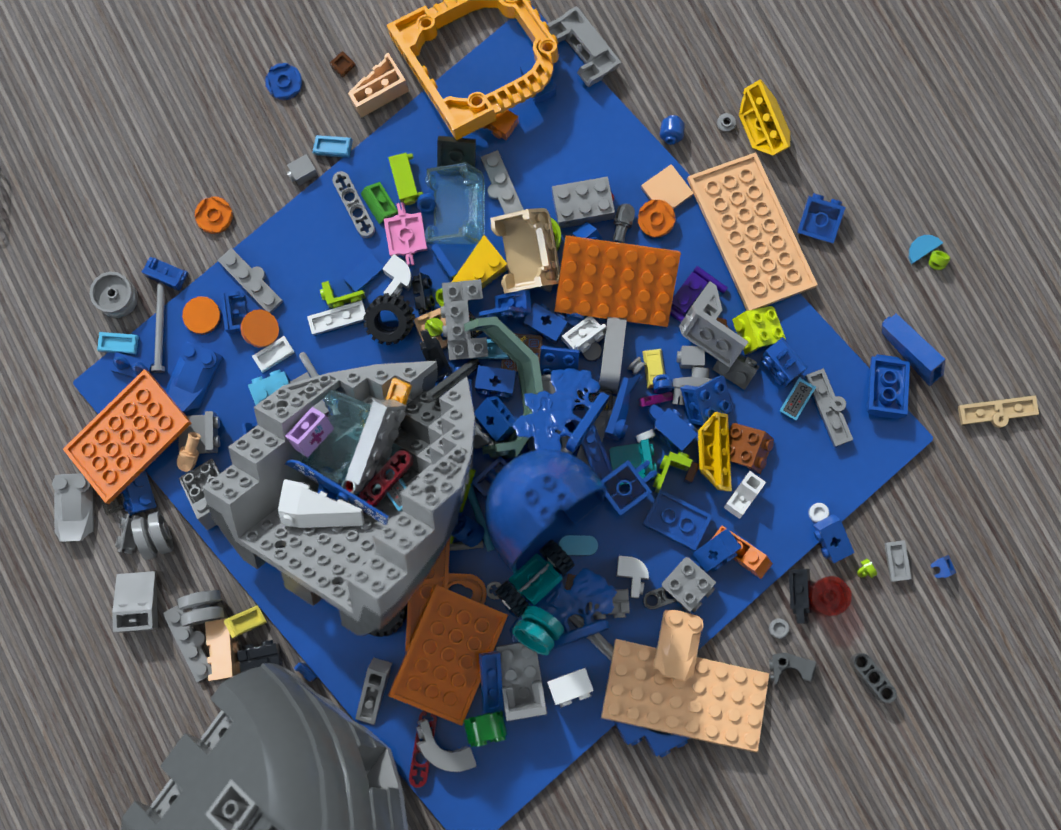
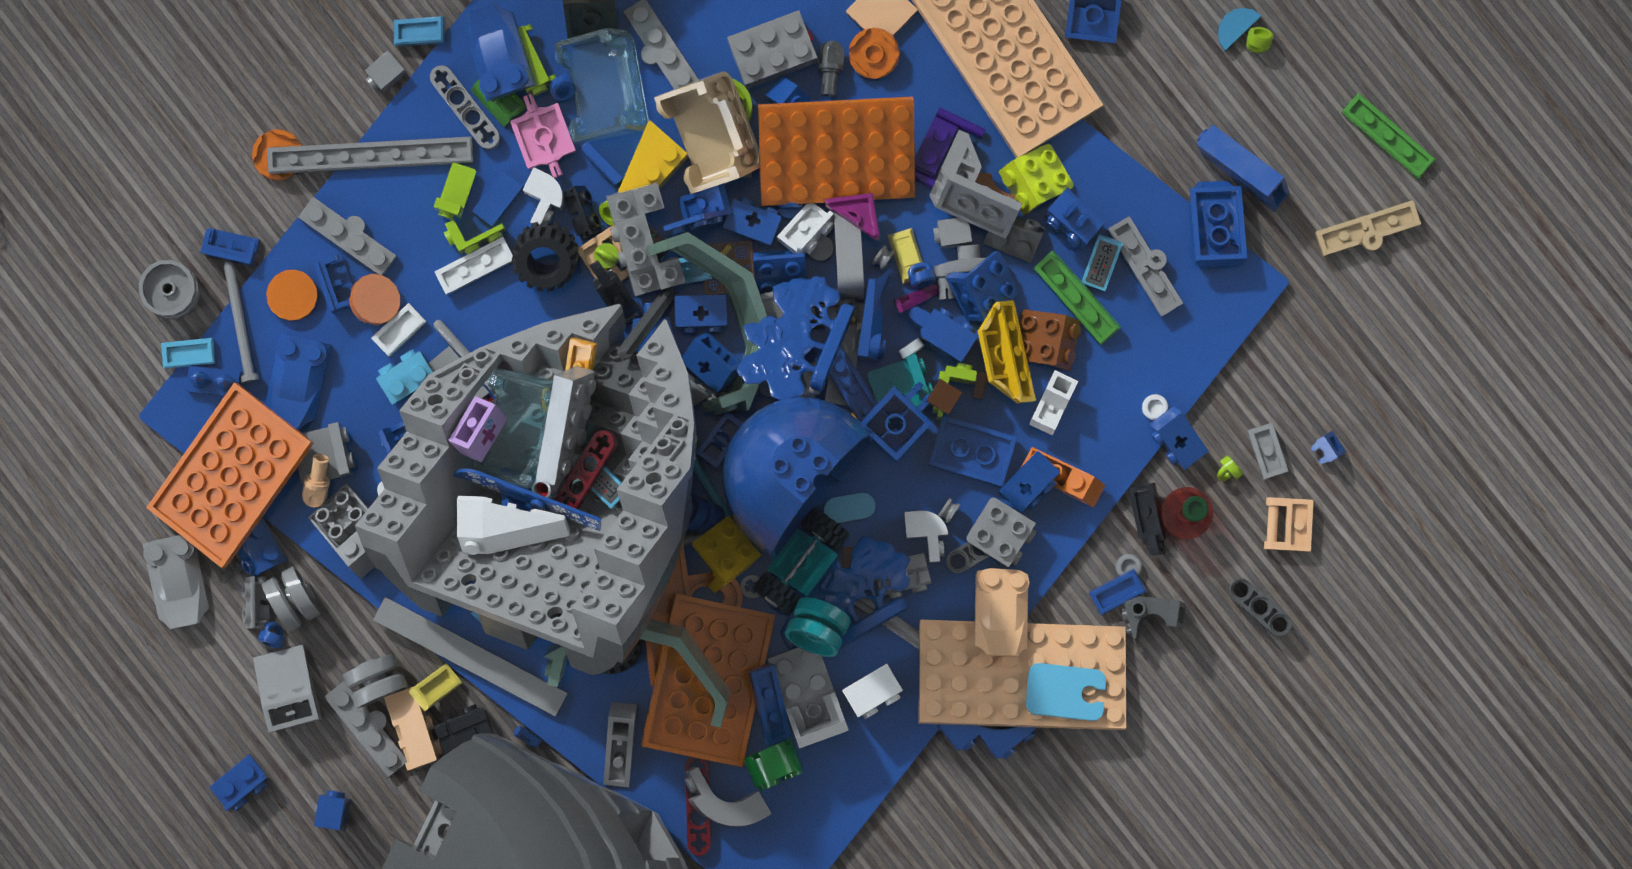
camera: 10 degrees left, 5 degrees up
(86, 665) = (240, 783): none -> blue bracket
(133, 563) = (271, 639): none -> blue tile
(148, 700) = (332, 810): none -> blue brick
(276, 603) = (470, 656): none -> light grey tile
(279, 226) = (370, 155): none -> light grey tile
(334, 262) = (455, 192): none -> lime bracket
(384, 167) = (498, 52): none -> blue slope
(435, 626) = (667, 635): none -> sand green panel
(479, 561) = (725, 552): none -> yellow bracket
(623, 327) = (858, 211): none -> magenta tile
(652, 561) = (948, 510): none -> light grey bush
(664, 474) = (944, 396): none -> reddish brown tile
(711, 714) = (1058, 691): none -> medium azure piece
(767, 645) = (1117, 591): none -> blue tile
(775, 421) = (1077, 297): none -> bright green tile
(838, 594) = (1195, 509): none -> dark green tile
(911, 620) = (1297, 524): none -> light nougat plate
(1023, 346) = (1388, 136): none -> bright green tile

